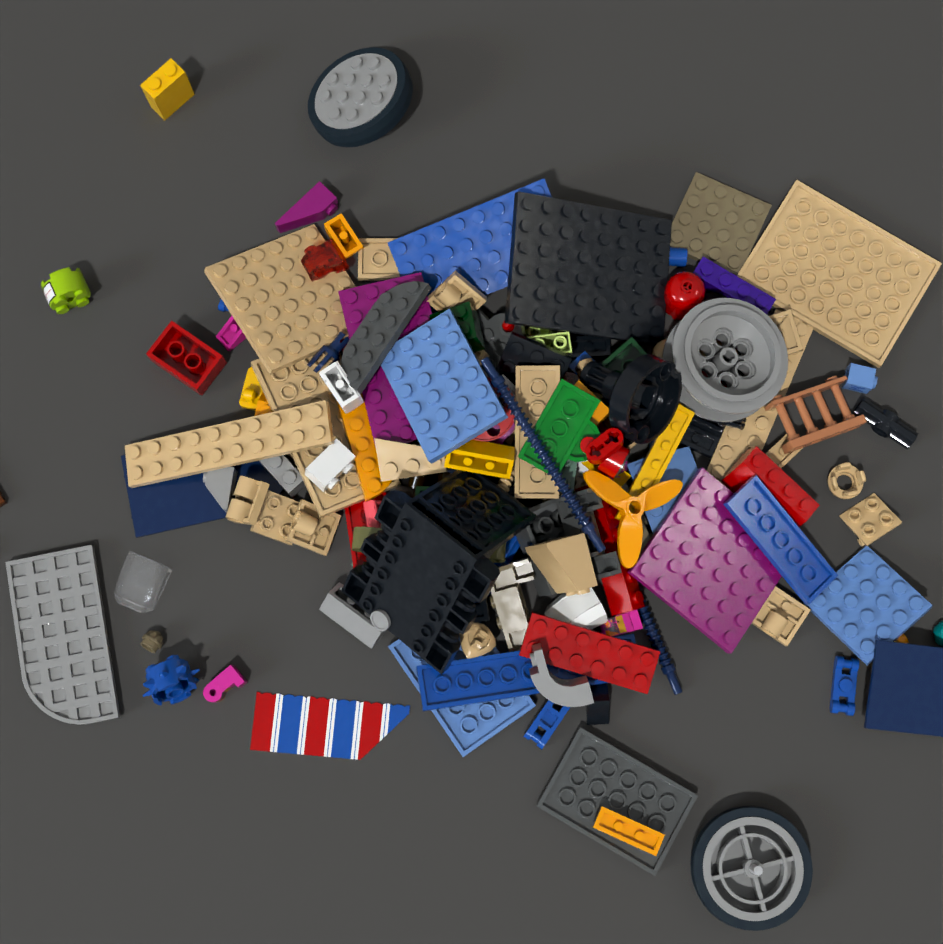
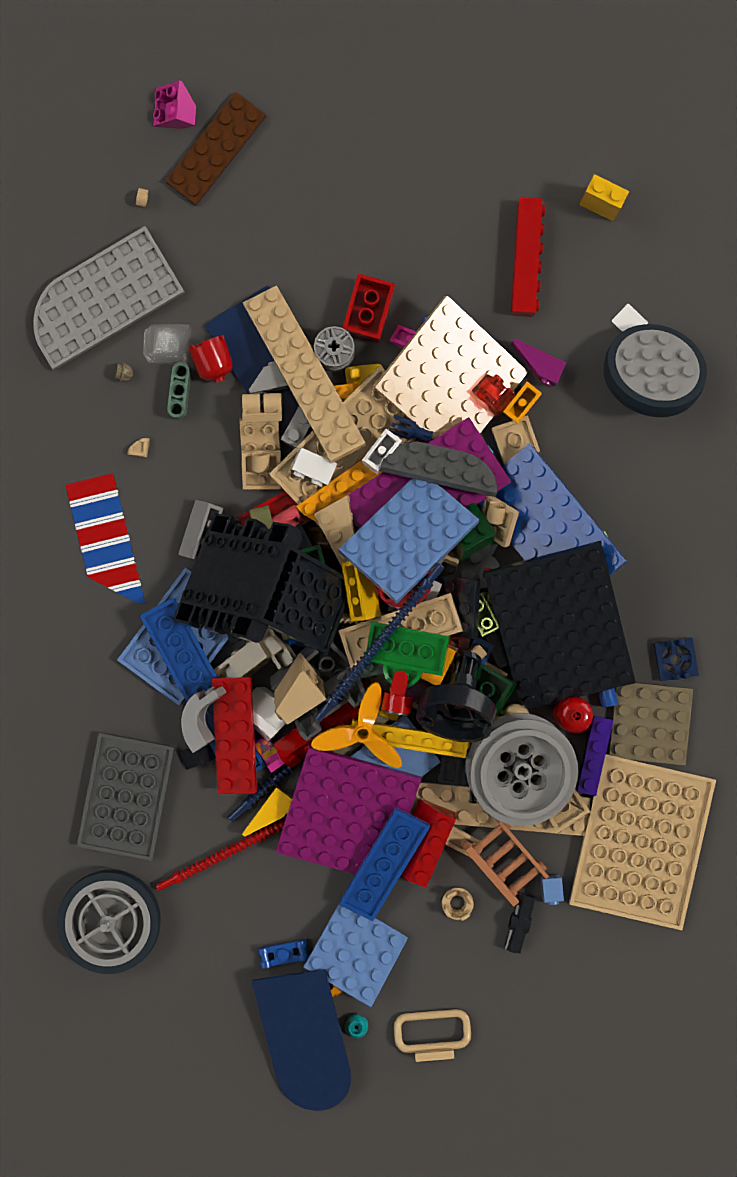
camera: 70 degrees right, 10 degrees up
(66, 290) = (391, 182): lime brick -> none
(170, 680) = (94, 400): blue brick -> none
(175, 538) = (211, 359): none -> red cylinder
(187, 581) = (177, 381): none -> sand green beam
(196, 185) = (527, 256): none -> red brick
(209, 393) = (343, 355): none -> light grey wheel
(220, 685) = (103, 440): dark pink leg -> none
(241, 652) = (140, 448): none -> tan tile
(298, 112) = (628, 318): none -> white sticker
(380, 620) = (200, 554): light grey piece -> none
(477, 641) = (211, 642): tan piece -> none
(548, 720) = (170, 720): blue plate -> none
(602, 442) = (399, 696): red beam -> none
(628, 831) = (103, 813): light orange plate -> none
(645, 192) = (692, 669): none -> dark blue piece
(683, 642) = (271, 811): none -> yellow slope
(724, 773) = (179, 876): none -> red hose
(781, 616) = (322, 884): tan plate -> none
(870, 519) = (431, 934): tan hinge -> none

